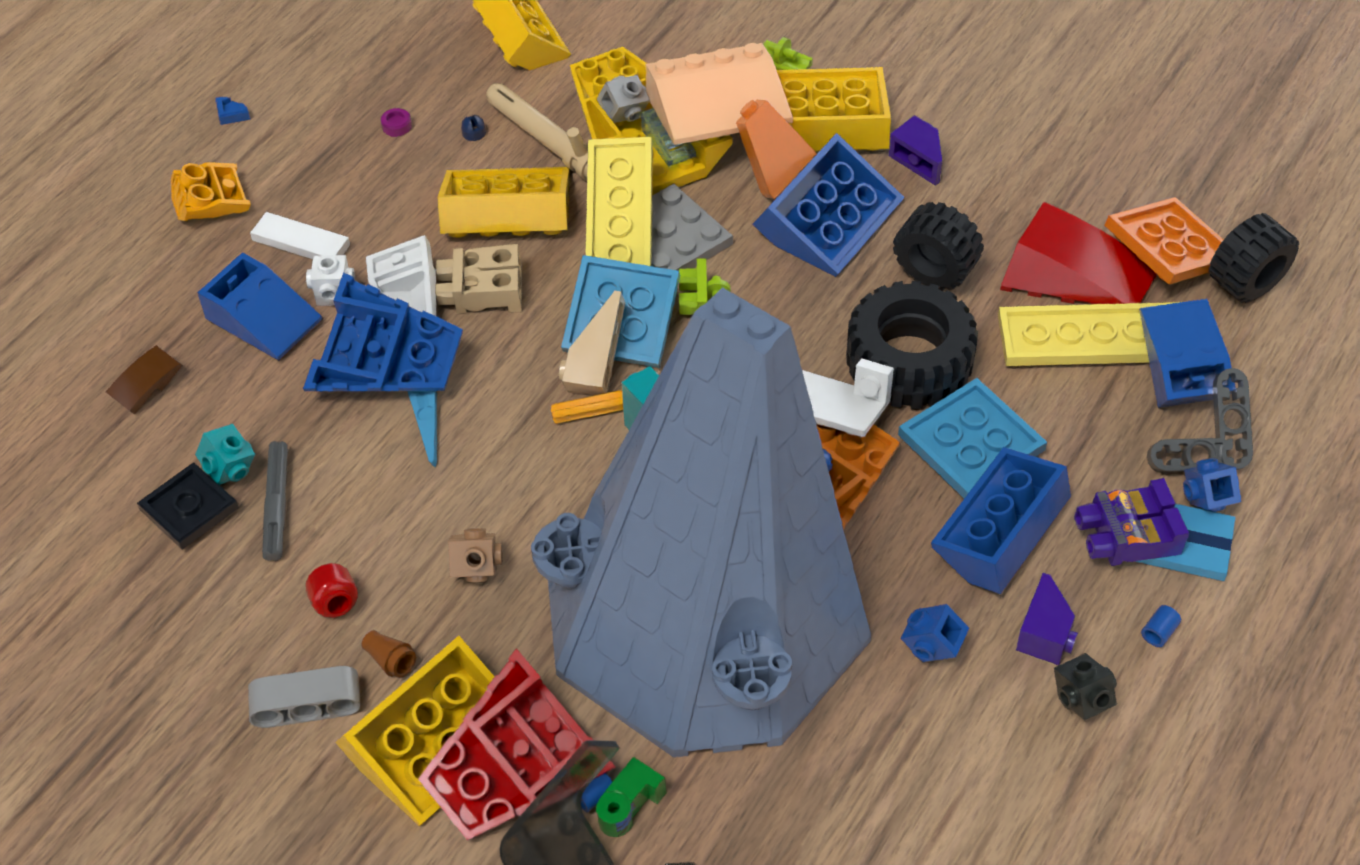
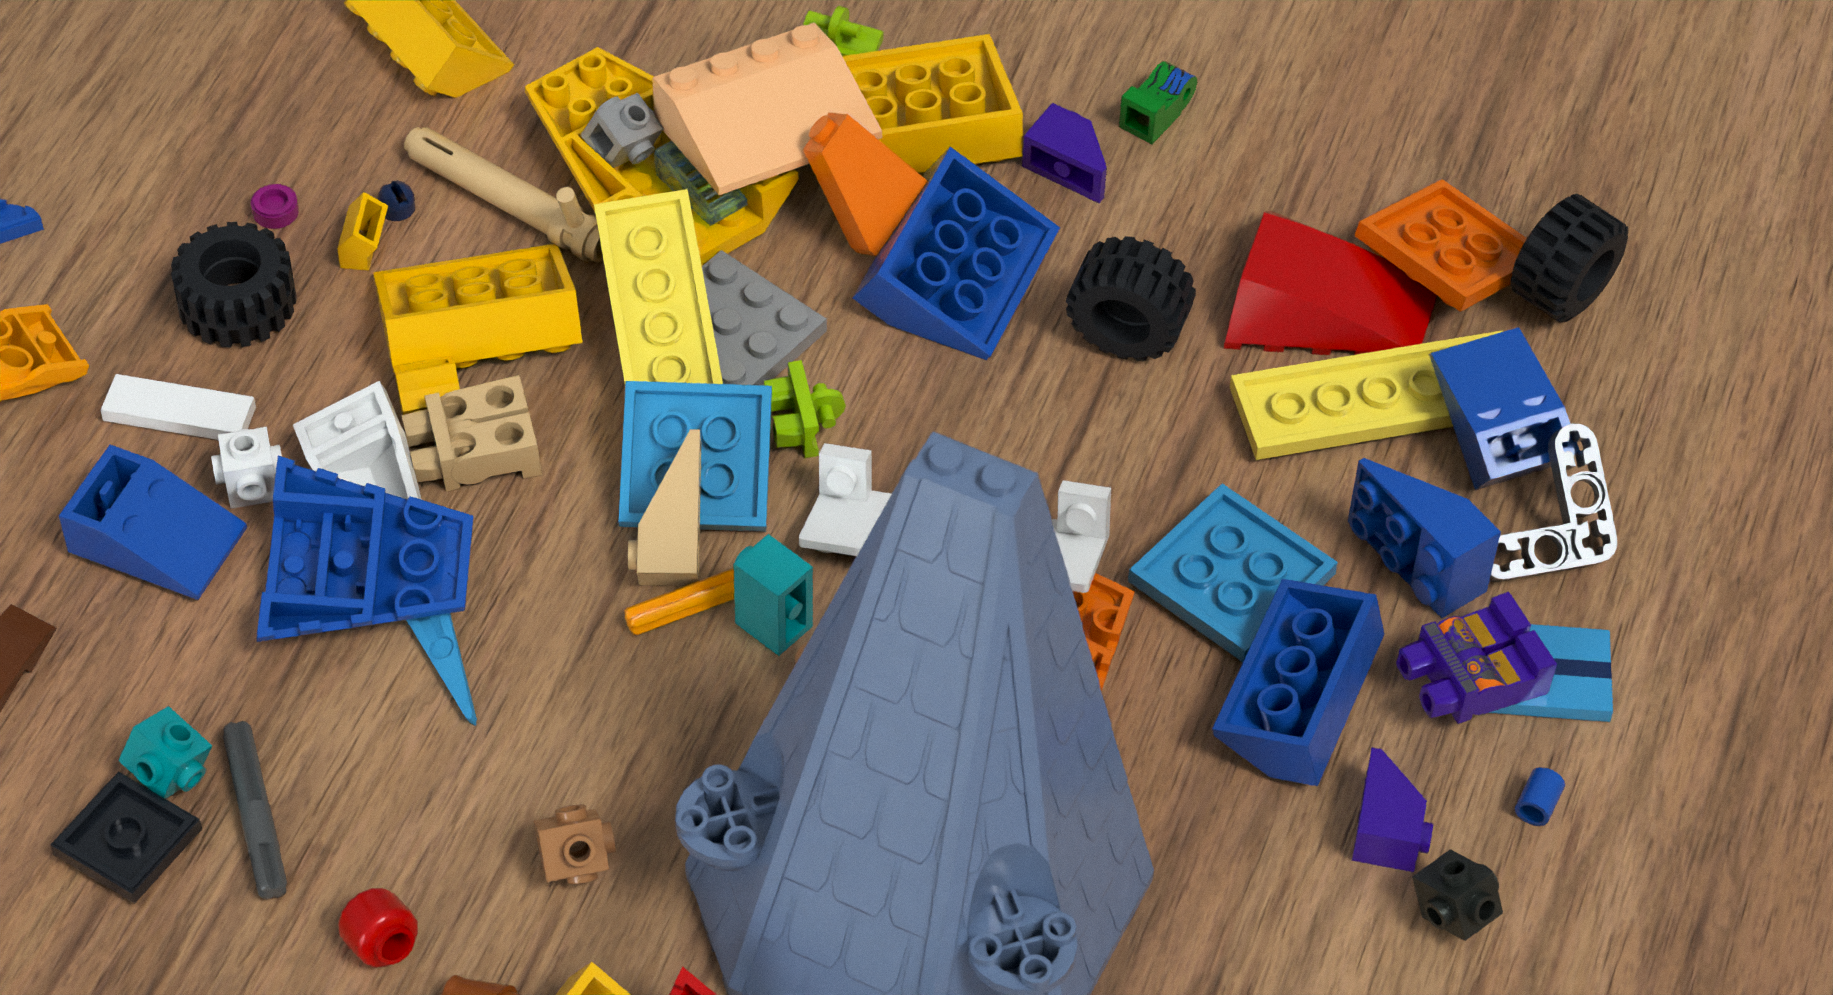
camera: 15 degrees left, 0 degrees up
(353, 165) = (241, 310): none -> black tyre
(449, 134) = (353, 248): none -> yellow piece
(457, 238) = (422, 379): none -> yellow piece
(919, 313) = (1134, 402): black tyre -> none
(934, 633) = (1243, 854): blue brick -> none
(990, 122) = (1160, 98): none -> green leg
(1112, 431) = (1424, 535): none -> blue slope
(1211, 485) = (1571, 591): blue brick -> none

